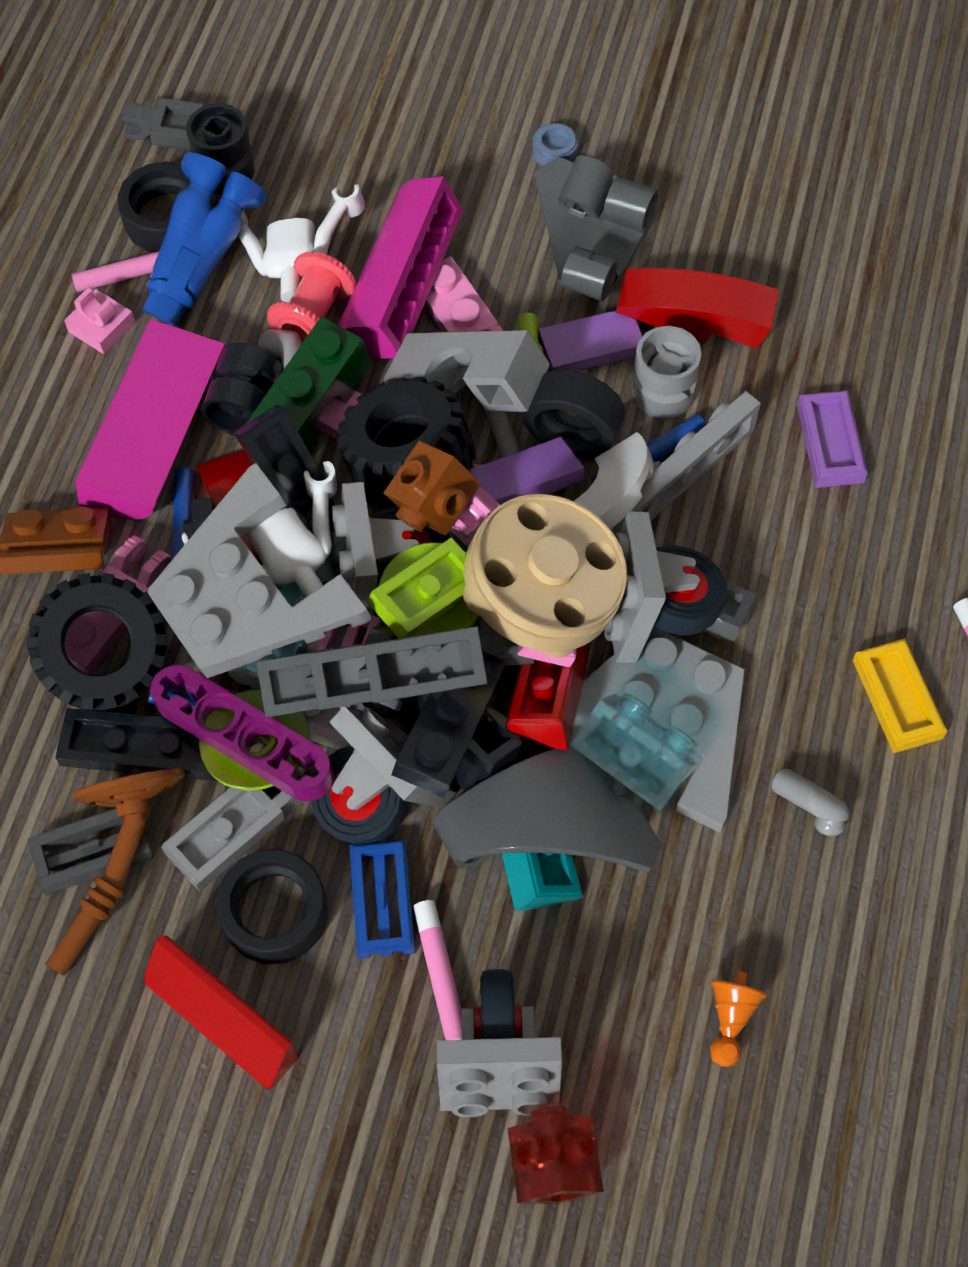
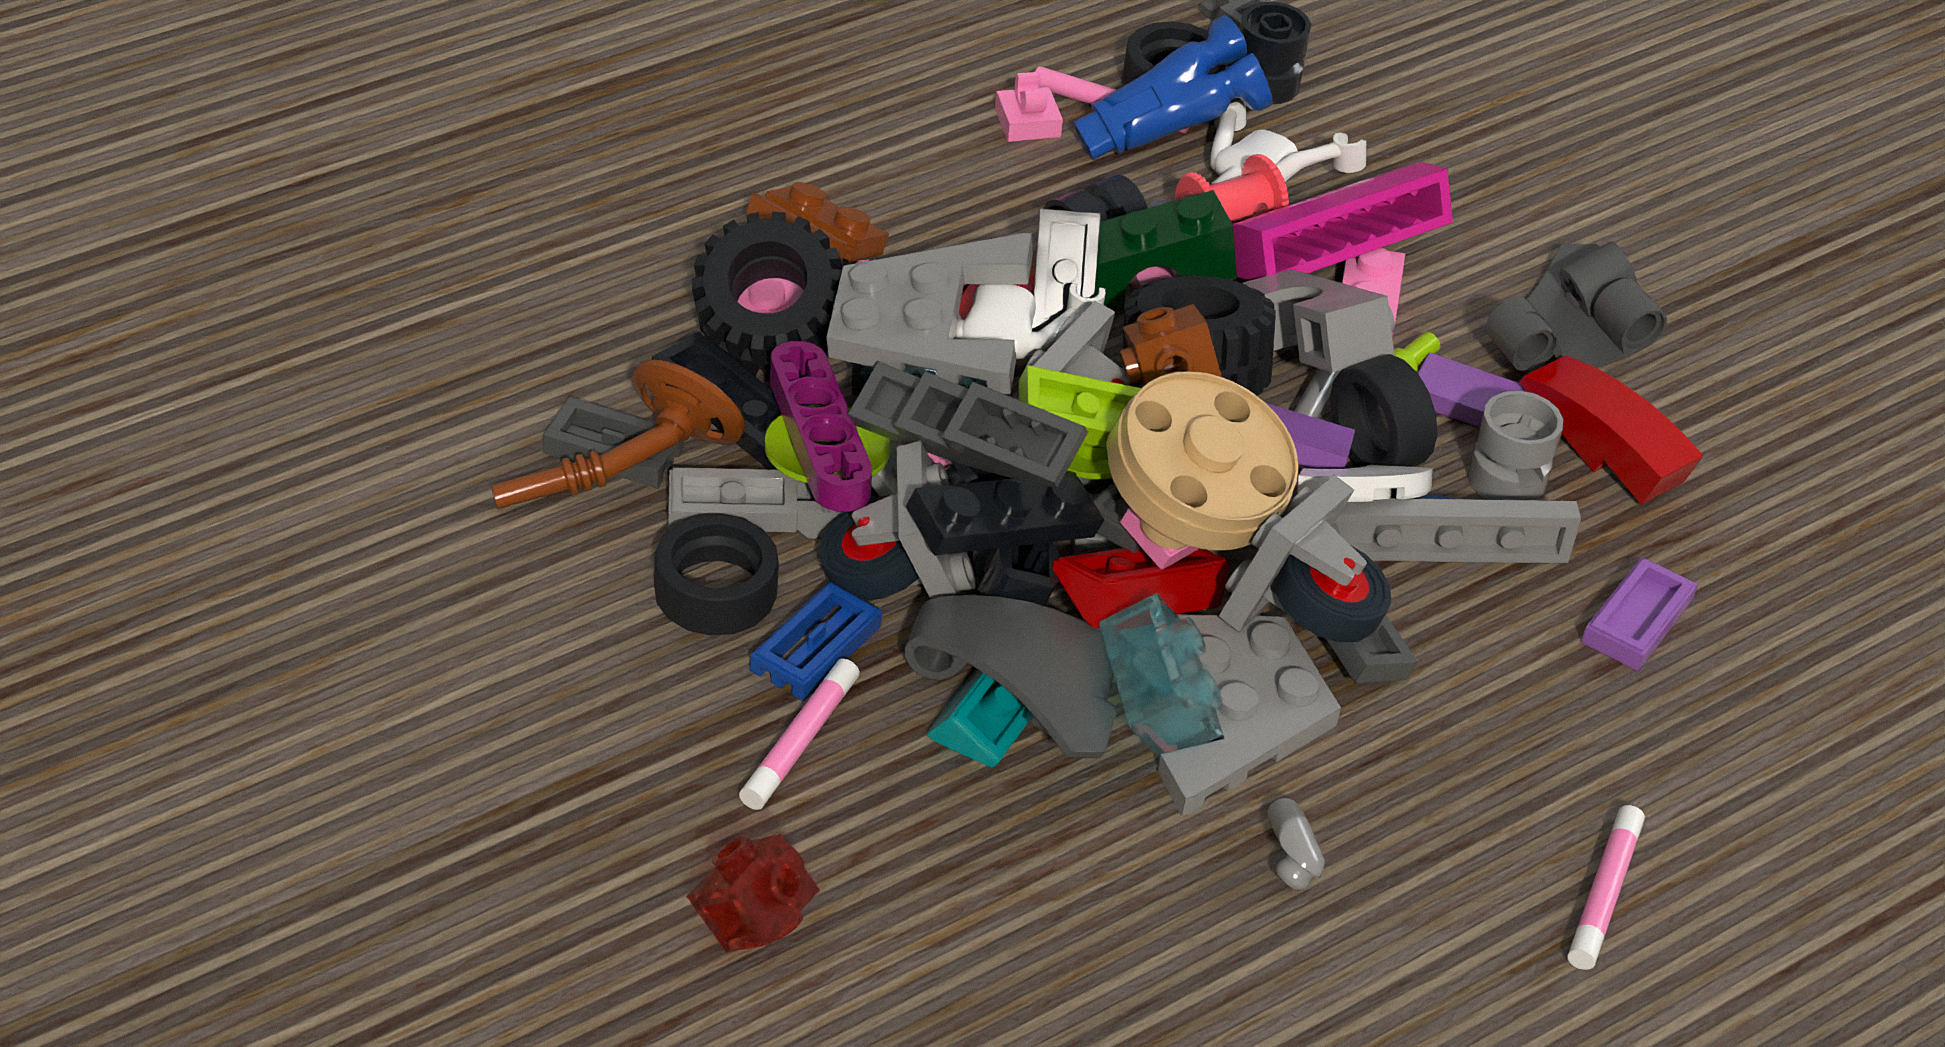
camera: 35 degrees right, 20 degrees down
(147, 421) = (983, 189): dark pink brick -> none
(219, 1013) = (591, 613): red slope -> none
(498, 1057) = (781, 778): light grey plate -> none
(554, 141) = (1607, 229): sand blue tile -> none
(734, 1007) = (1045, 923): orange piece -> none
(899, 695) = (1479, 836): yellow tile -> none

